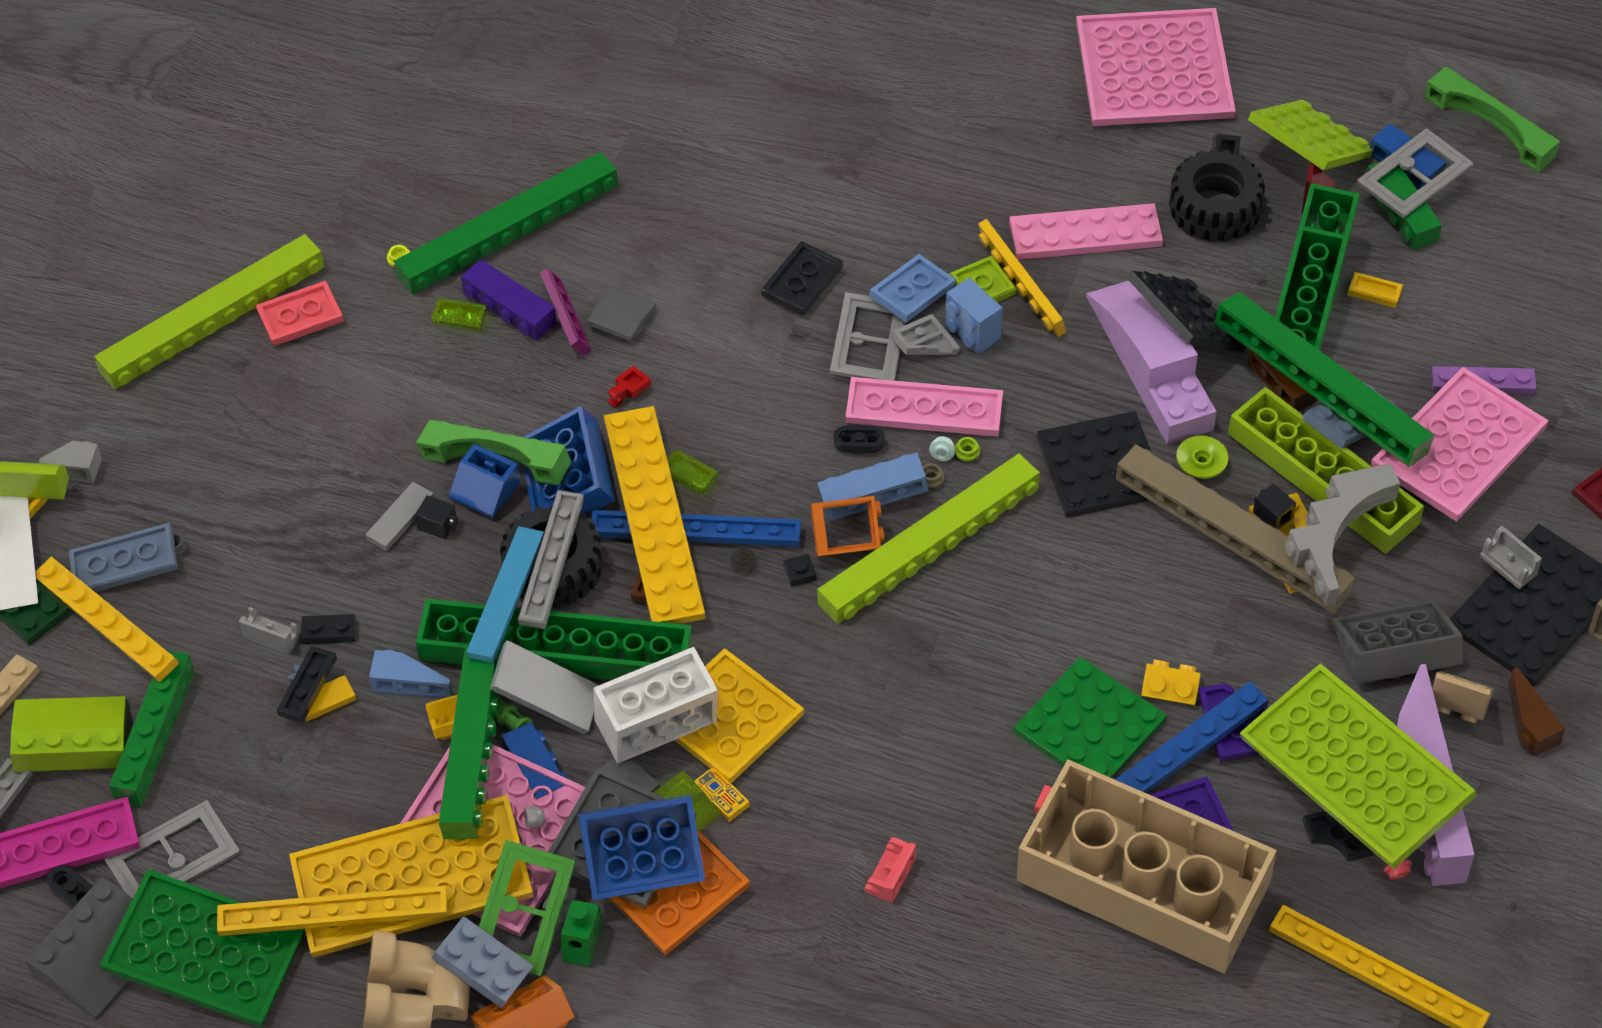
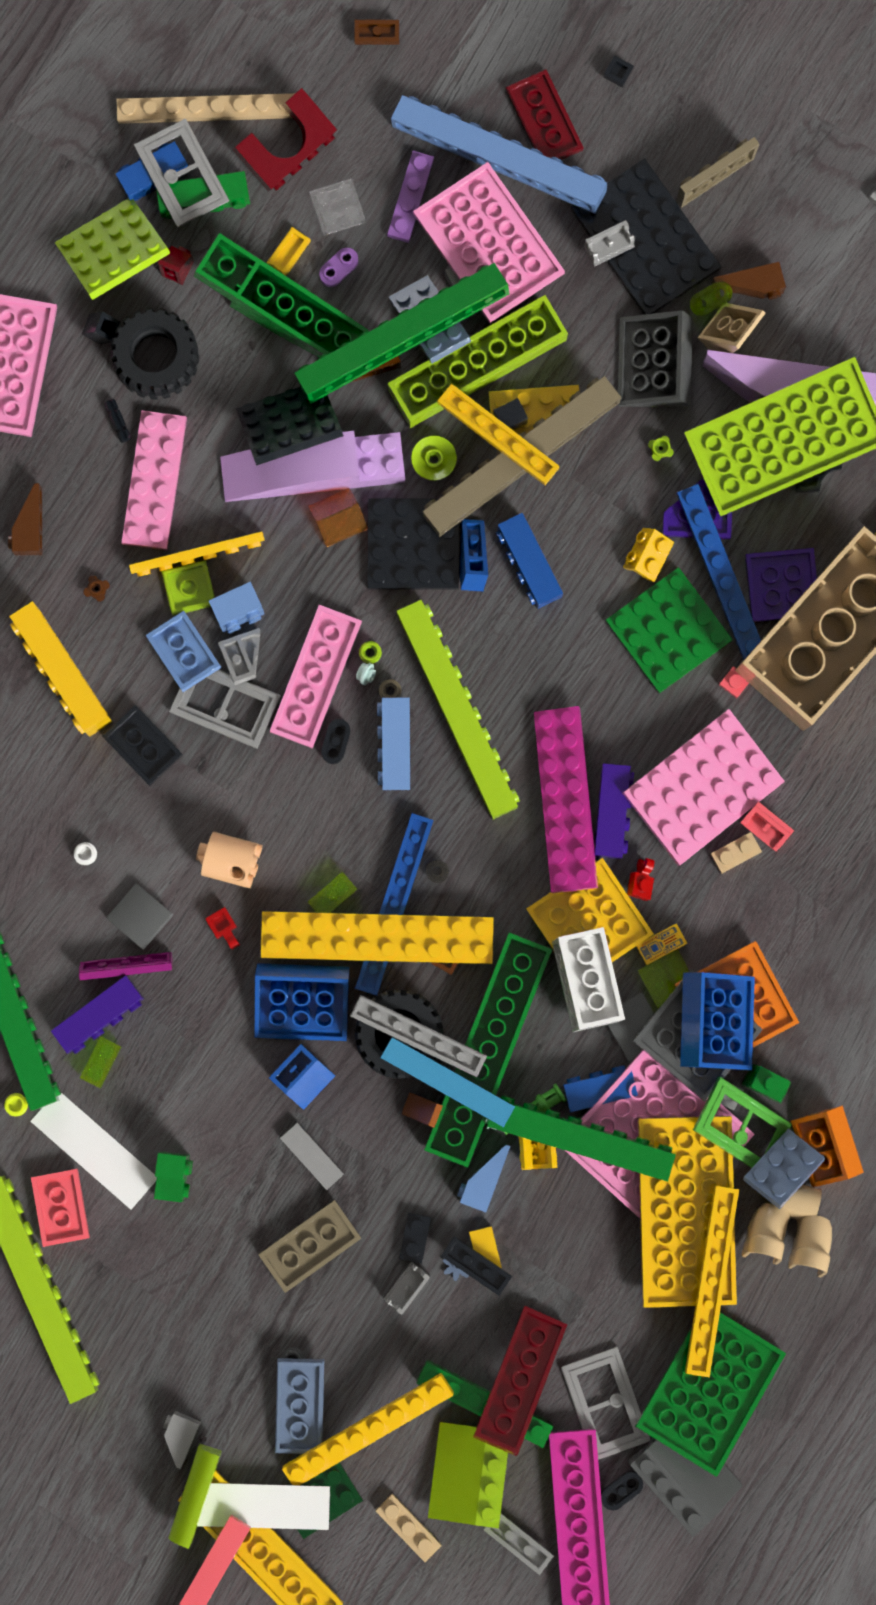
camera: 80 degrees left, 30 degrees up
(183, 745) = (520, 1381): none -> dark red plate
(300, 533) = (310, 1246): none -> dark tan plate
(352, 394) = (172, 1176): none -> green brick
(365, 334) = (95, 1150): none -> white sticker
(436, 517) = (326, 1124): black brick -> none
(447, 441) = (247, 1102): bright green arch -> none
(471, 595) = (422, 1109): none -> dark orange tile
(534, 817) = (661, 1101): light grey hinge -> none
(544, 687) = (537, 1067): light grey tile -> none
(674, 256) = (85, 853): none -> white plate
(701, 367) = (229, 859): none -> light nougat cylinder
(785, 754) = (640, 882): none -> red plate
(799, 570) = (457, 826): black plate -> none
(819, 531) = (450, 777): orange window -> none
(850, 847) = (736, 852): none -> tan plate
(858, 188) = (59, 667): none -> yellow brick
(859, 657) = (565, 800): none -> dark pink plate
(860, 708) = (612, 811): none -> dark purple brick
(916, 789) = (703, 787): none -> bright pink plate
(954, 208) = (90, 590): none -> reddish brown plate
(1000, 139) = (27, 529): none -> reddish brown slope
(1103, 390) = (338, 517): none -> clear orange slope
(1105, 515) = (473, 555): none -> blue slope
(1120, 569) = (529, 560): none -> blue brick
(1136, 188) = (117, 420): none -> black axle
(1246, 489) = (498, 434): none -> yellow plate
(1298, 662) = (660, 442): none -> lime plate
(1346, 499) = (550, 379): light grey arch -> none
(1376, 335) = (339, 267): none -> medium lavender plate
(1442, 320) = (337, 207): none -> clear plate
(1453, 91) = (165, 57): bright green arch -> none
(1492, 673) = (712, 298): none -> clear neon green plate
(1497, 192) = (202, 108): none -> tan plate
(1510, 279) = (315, 130): none -> dark red arch
(1564, 442) = (503, 155): none -> medium blue brick

